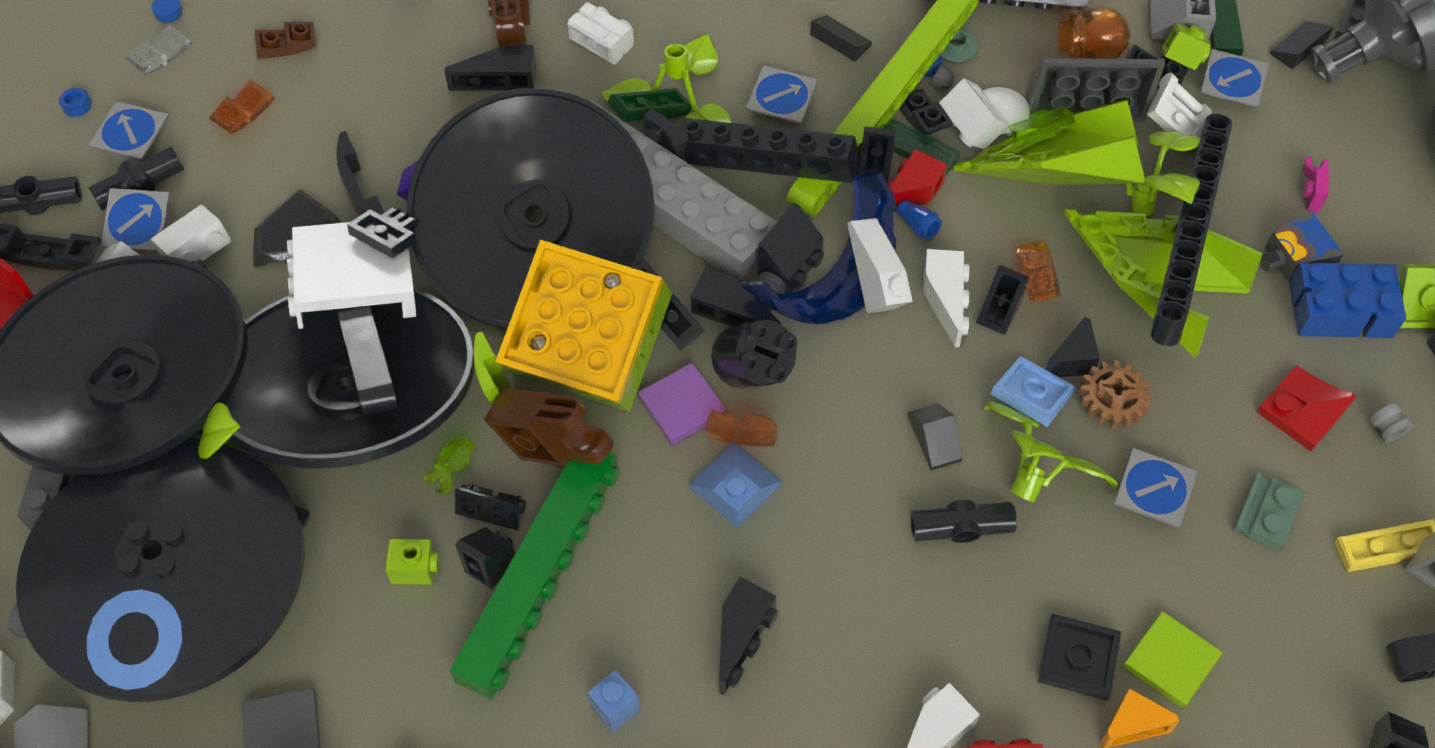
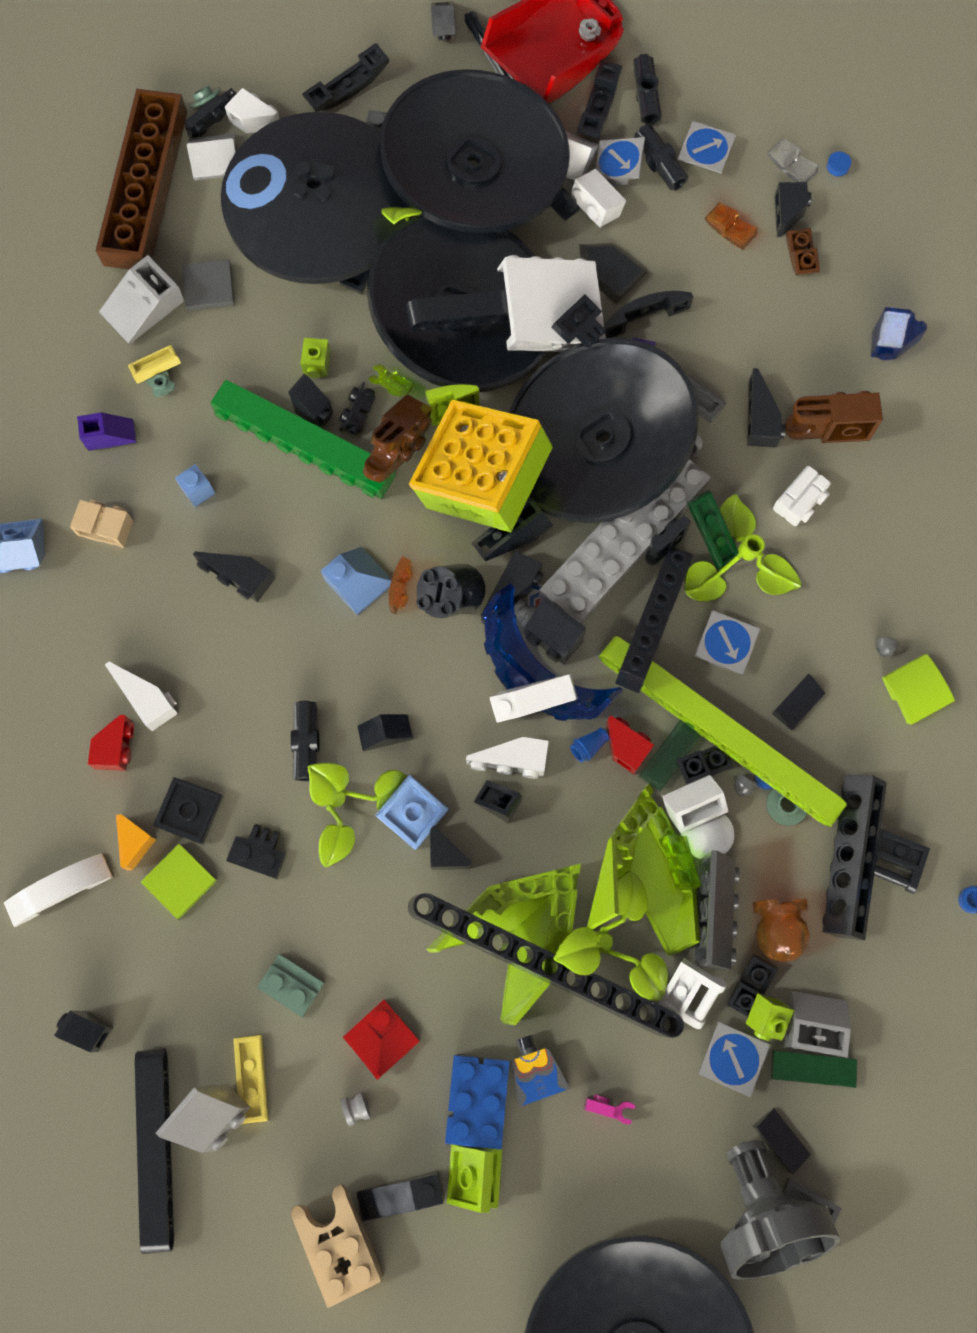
camera: 95 degrees right, 15 degrees up
(75, 102) = (742, 110): blue tile -> none
(223, 49) = (790, 204): none -> black slope
(680, 403) = (429, 544): medium lavender tile -> none
(877, 151) = (647, 710): black slope -> none
(1038, 264) = (528, 835): clear orange slope -> none
(1112, 390) = (391, 876): medium nougat gear -> none
(1114, 566) = (258, 852): none -> black hinge
(1156, 488) = (316, 894): piece -> none

